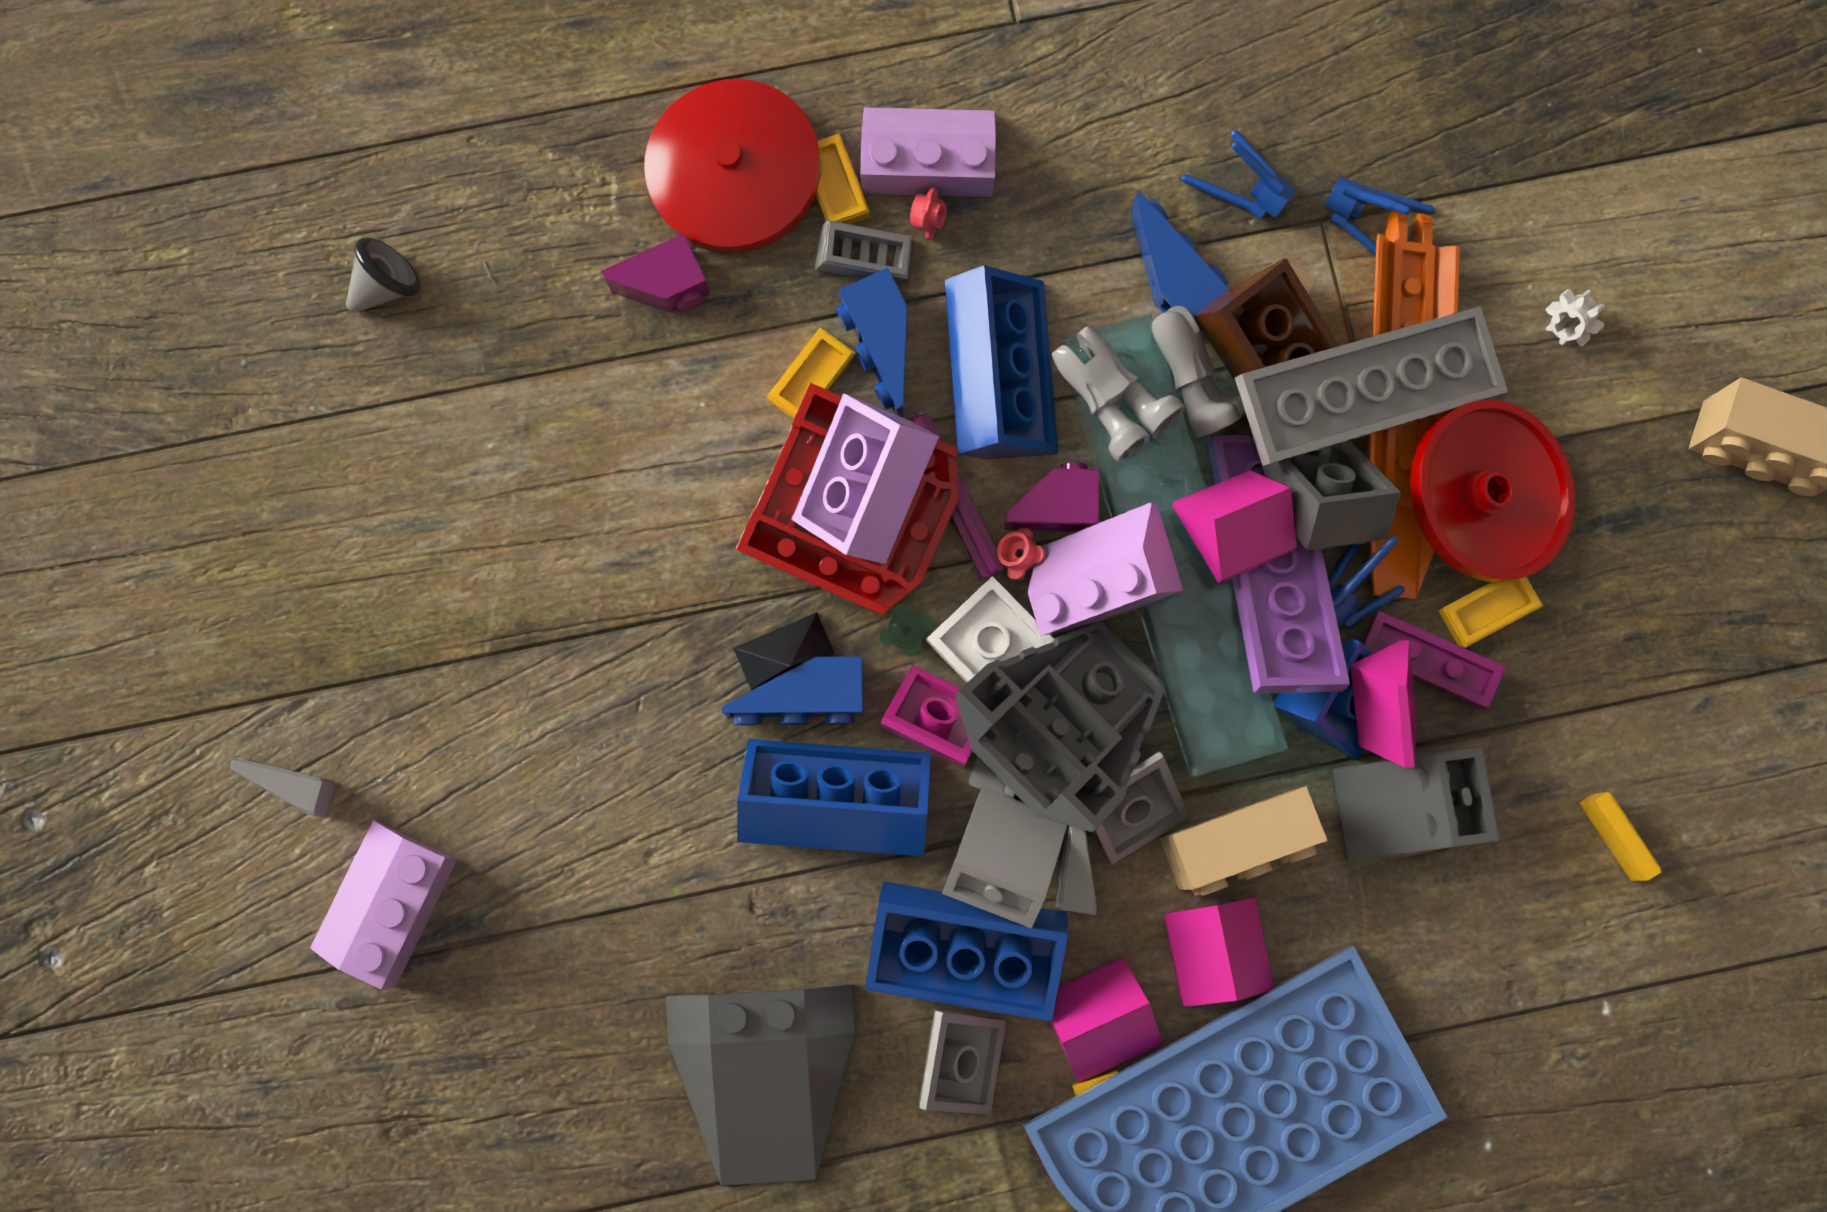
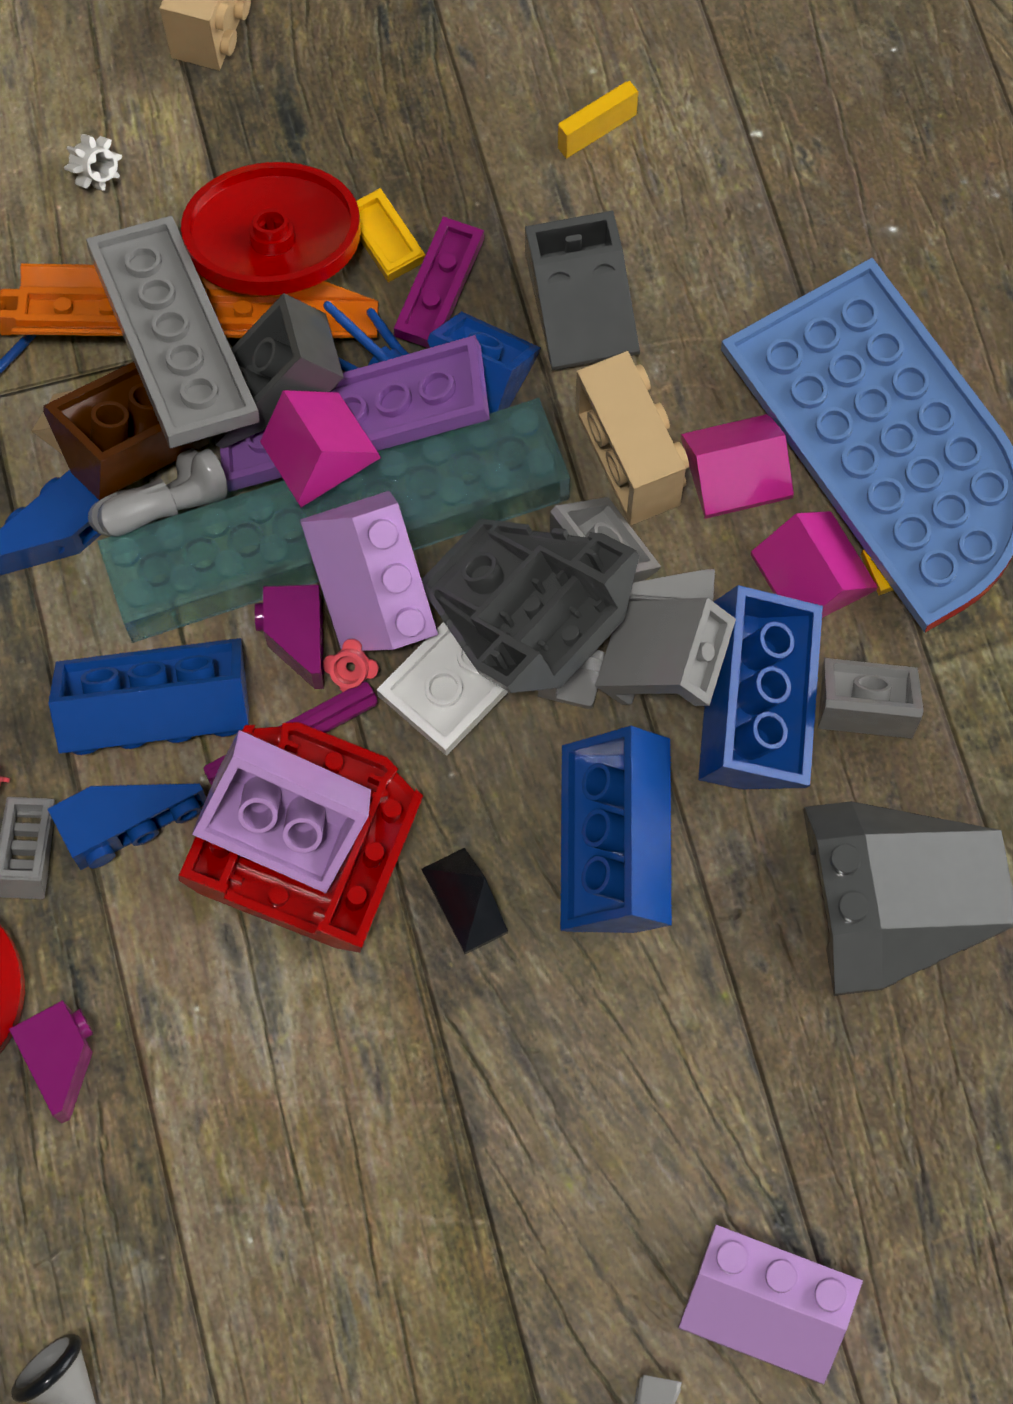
camera: 90 degrees left, 10 degrees down
(814, 689) = (504, 855): blue slope -> none
(819, 363) = (157, 890): yellow tile -> none
(910, 642) = (436, 788): clear green plate -> none
(928, 717) = (526, 738): dark pink slope -> none
(1107, 382) = (176, 569): light grey piece -> none
(1386, 704) = (490, 309): dark pink slope -> none

